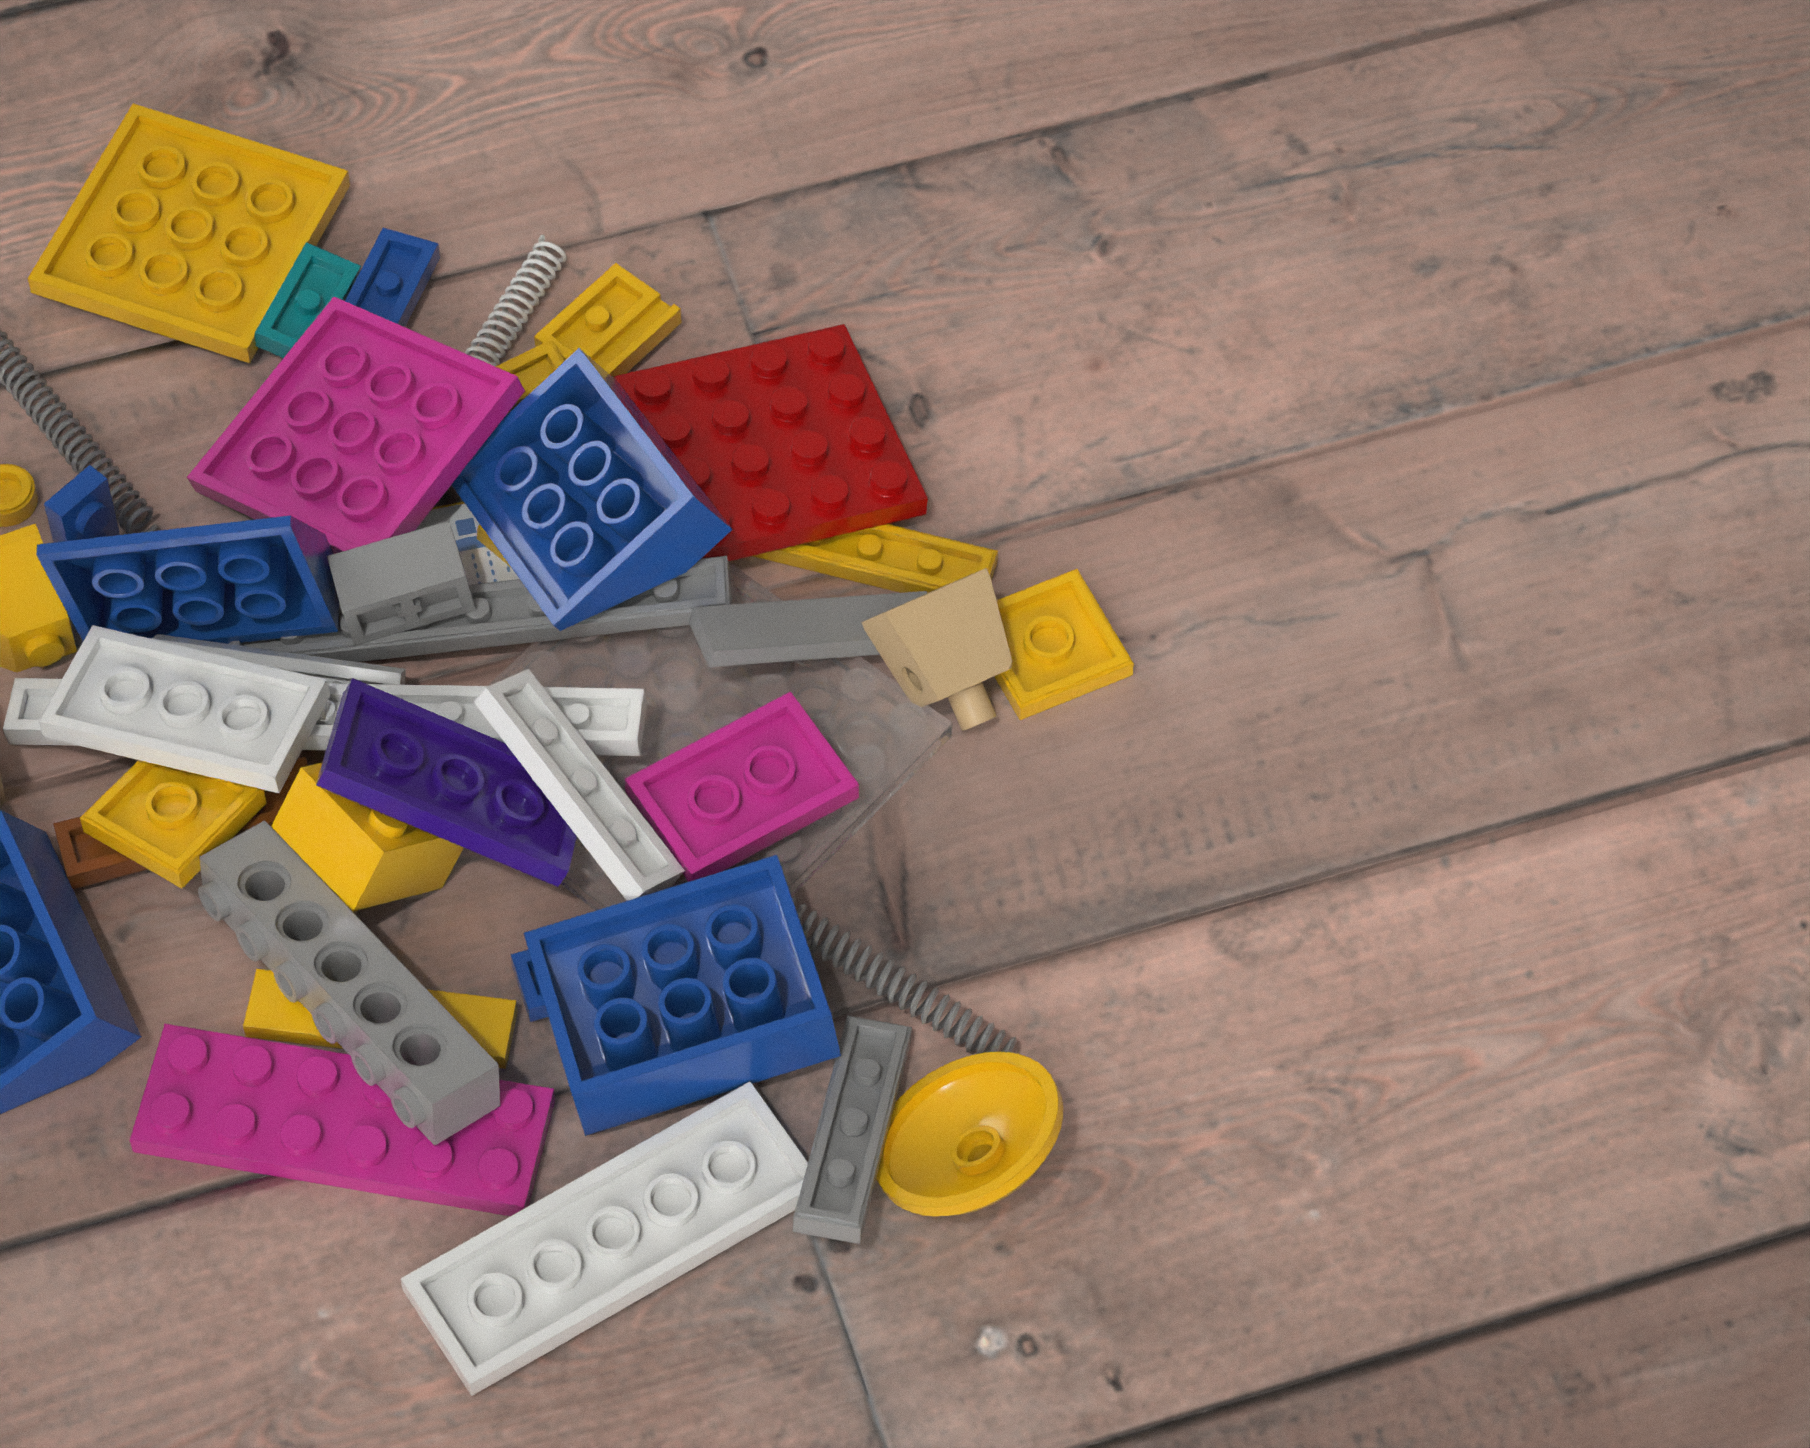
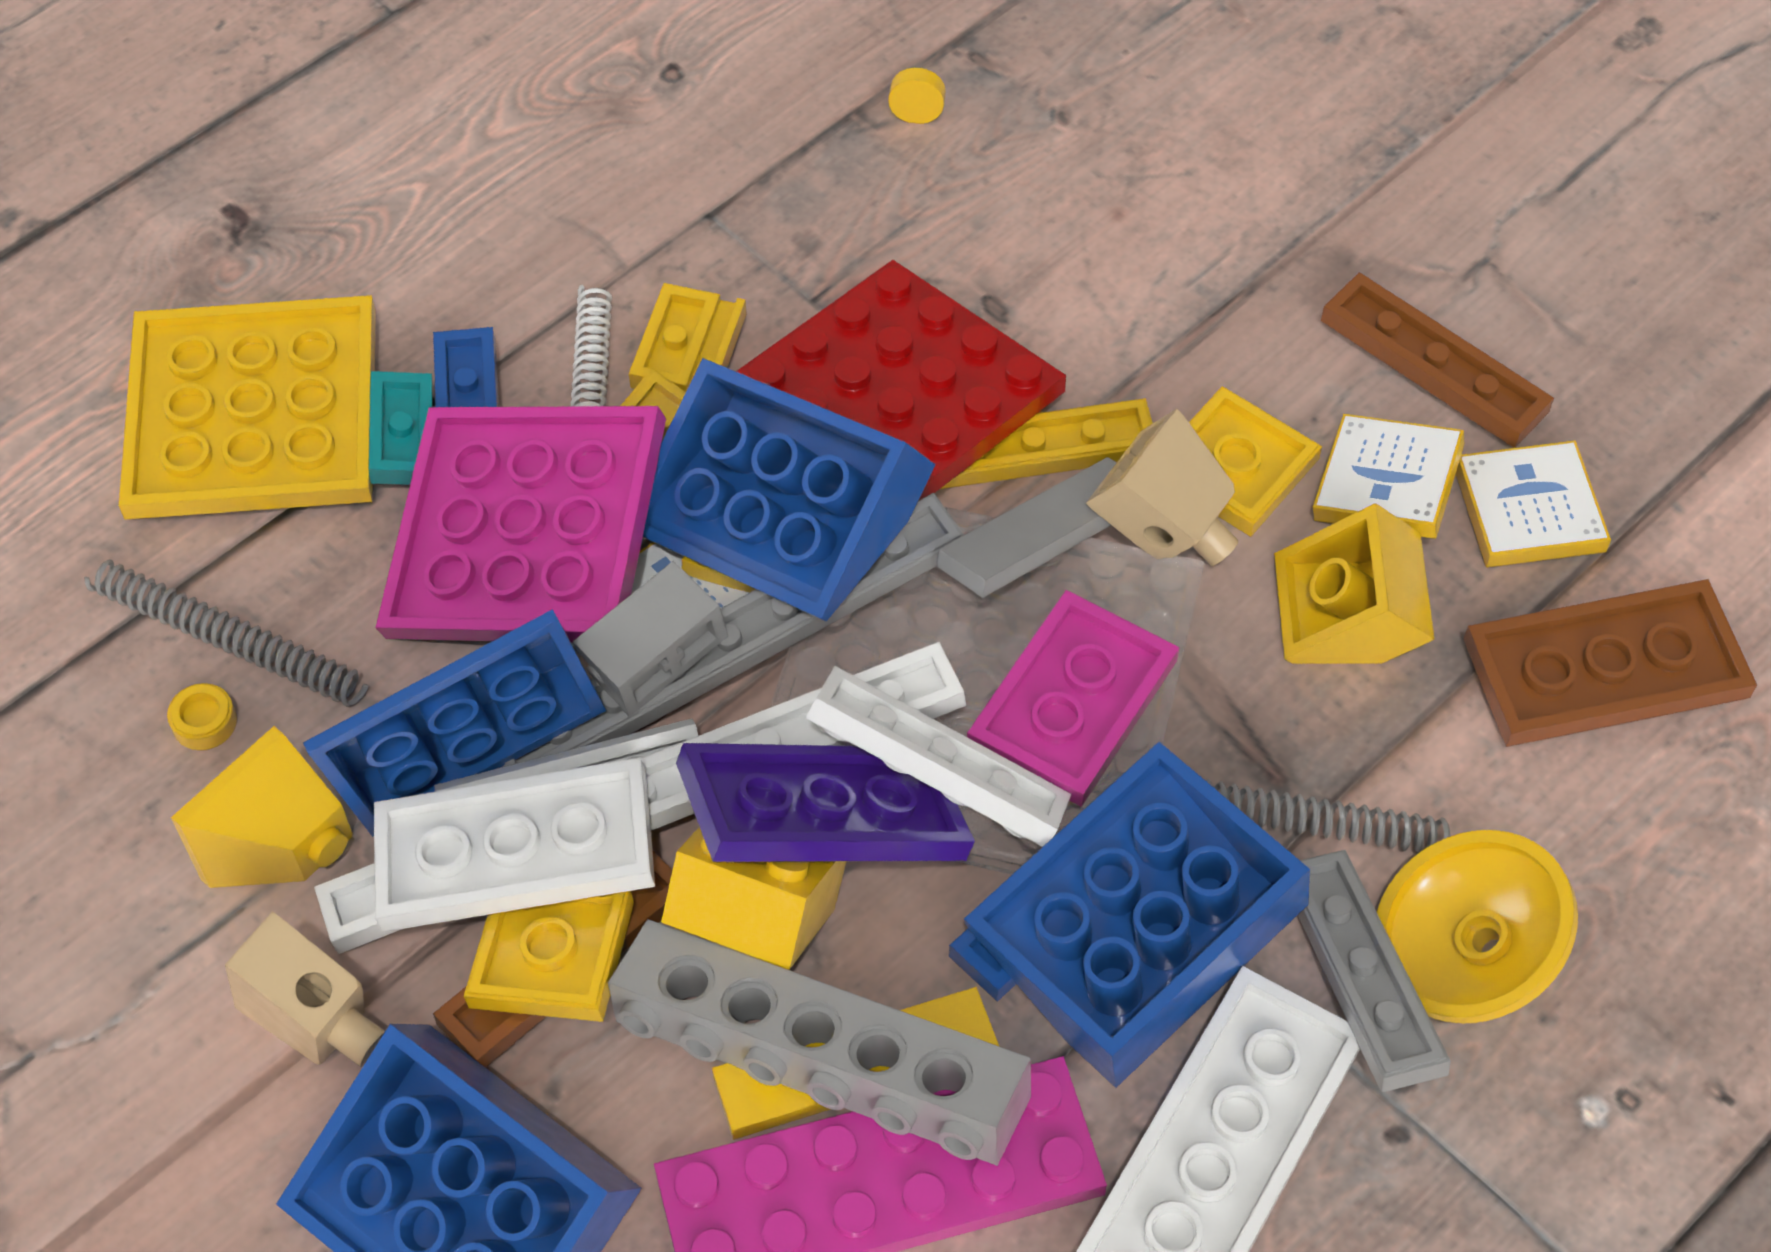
camera: 25 degrees left, 0 degrees up
(82, 508) = (306, 701): blue plate -> none
(965, 171) = (917, 95): none -> yellow tile
(1070, 807) = (1354, 592): none -> yellow slope
(1176, 715) = (1390, 464): none -> white tile
(1265, 969) = (1608, 662): none -> dark orange plate
(1298, 626) = (1437, 359): none -> dark orange plate
(1299, 798) = (1531, 504): none -> white tile

